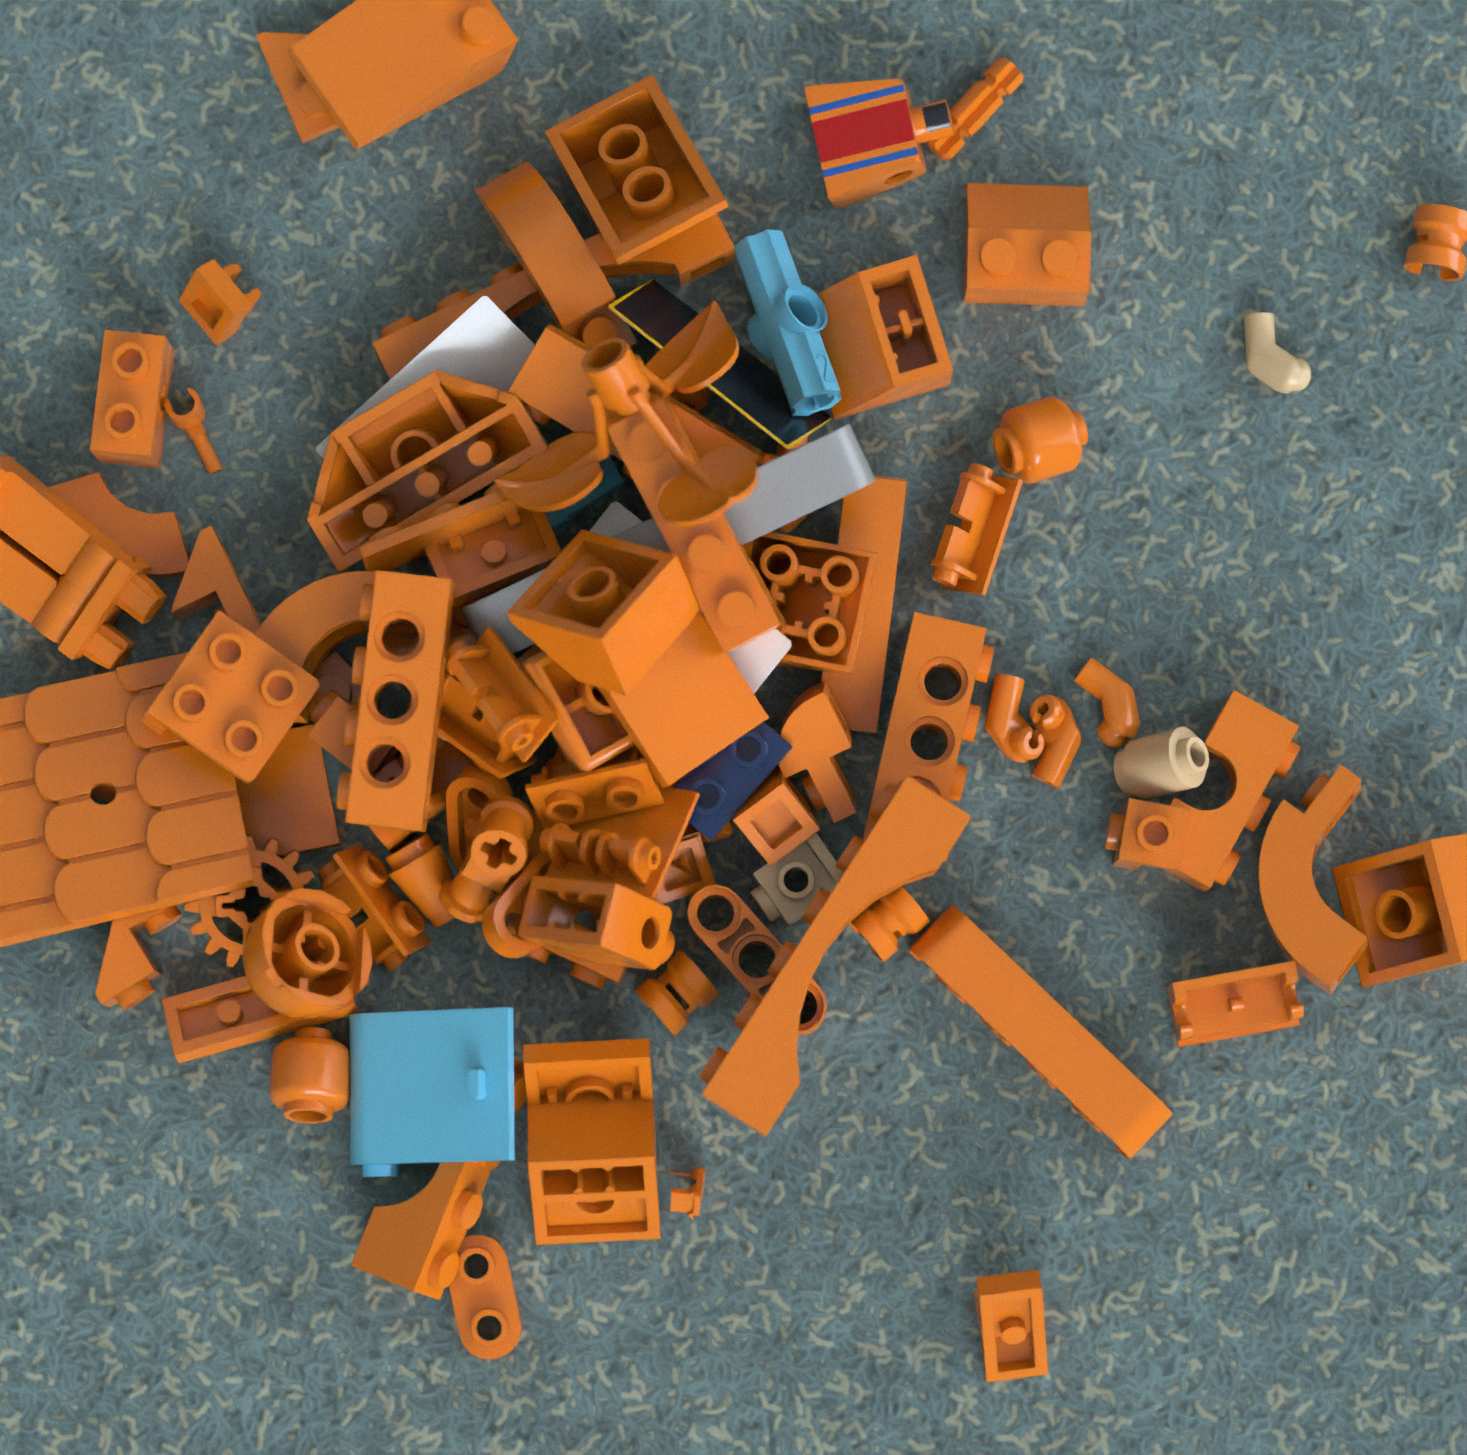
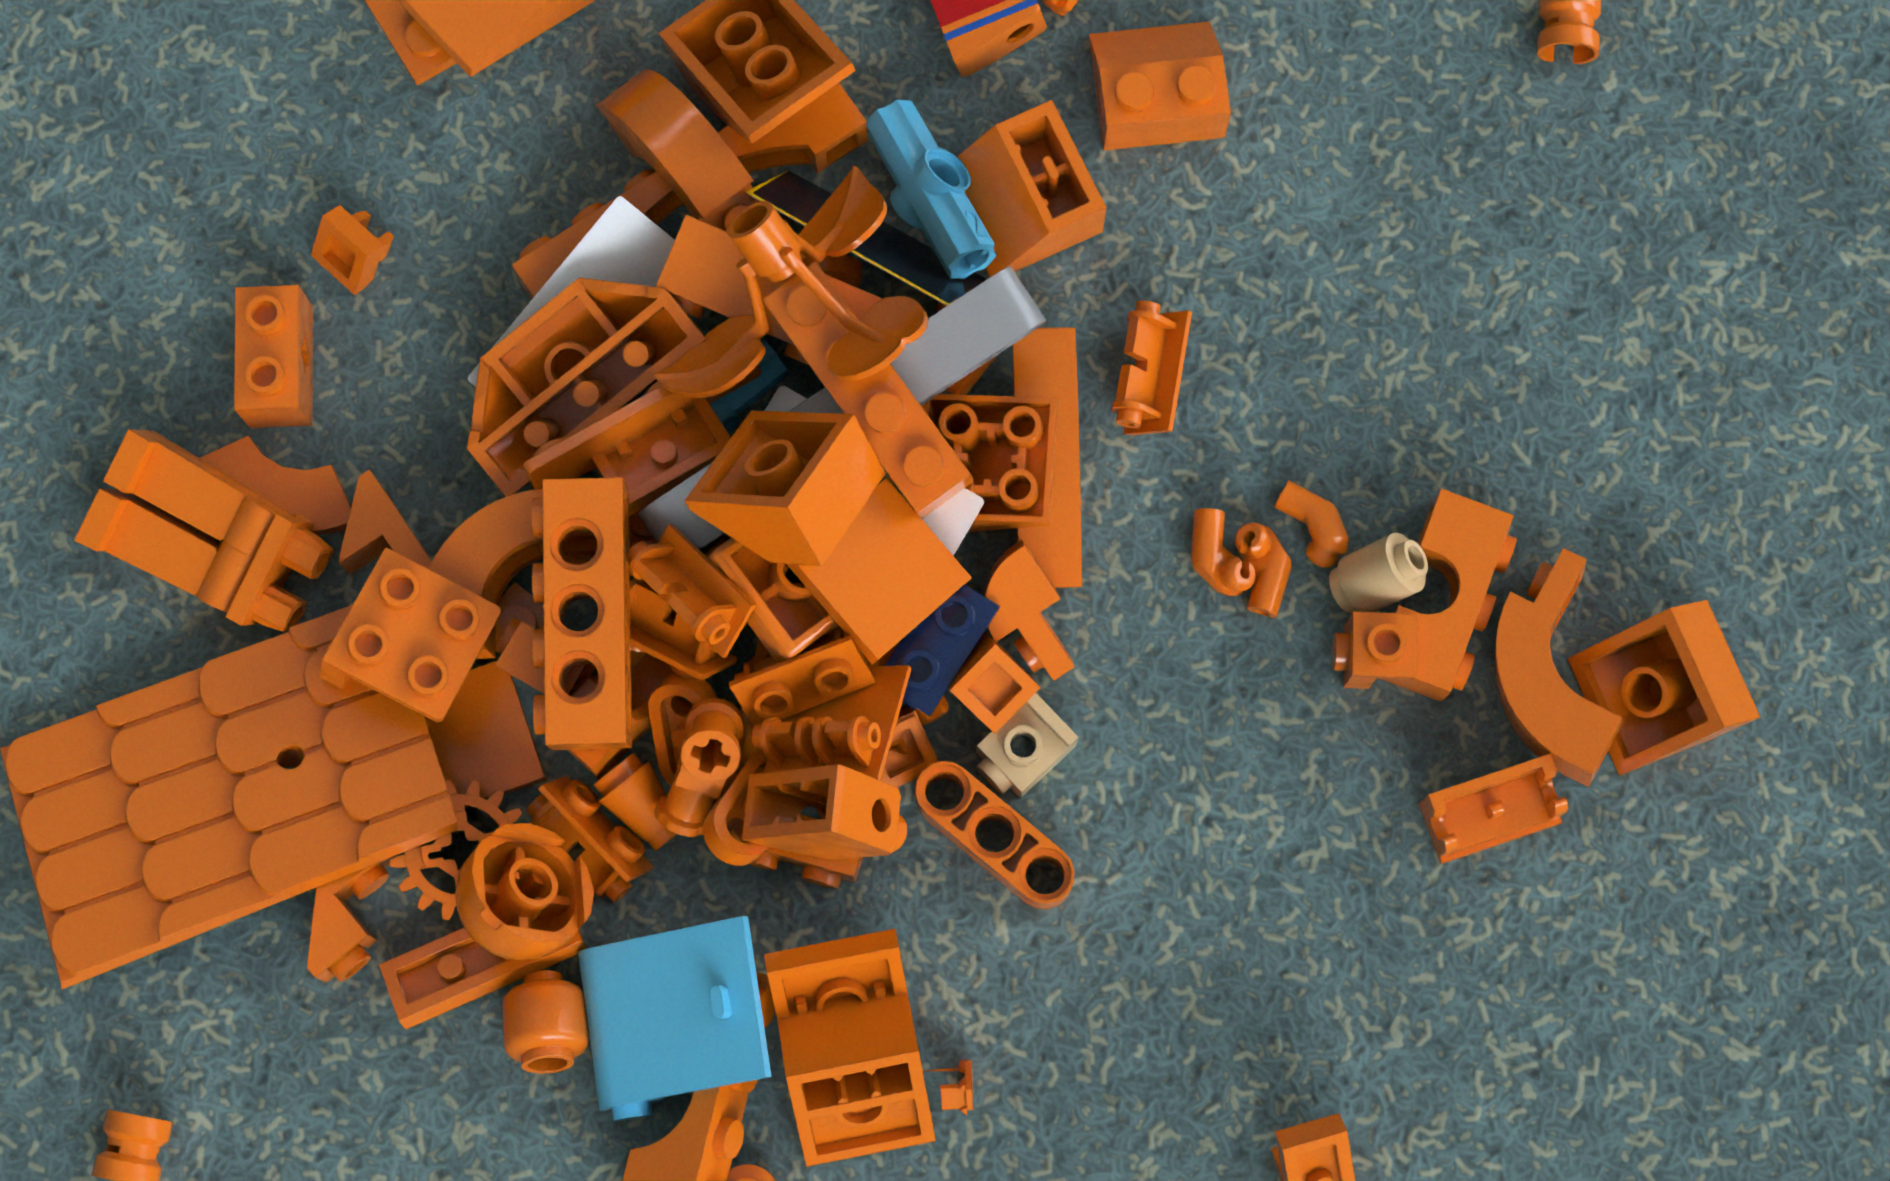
camera: 10 degrees left, 5 degrees down
(196, 431) = (339, 374): orange hand -> none
(687, 982) = (925, 868): orange wheel -> none
(888, 920) = (1123, 772): orange wheel -> none
(904, 846) = (1130, 693): orange arch -> none
(933, 646) = (1129, 490): orange brick -> none
(1040, 440) = (1202, 270): orange head -> none
(1041, 1031) = (1301, 865): orange beam -> none
(1270, 362) = (1419, 164): tan arm -> none

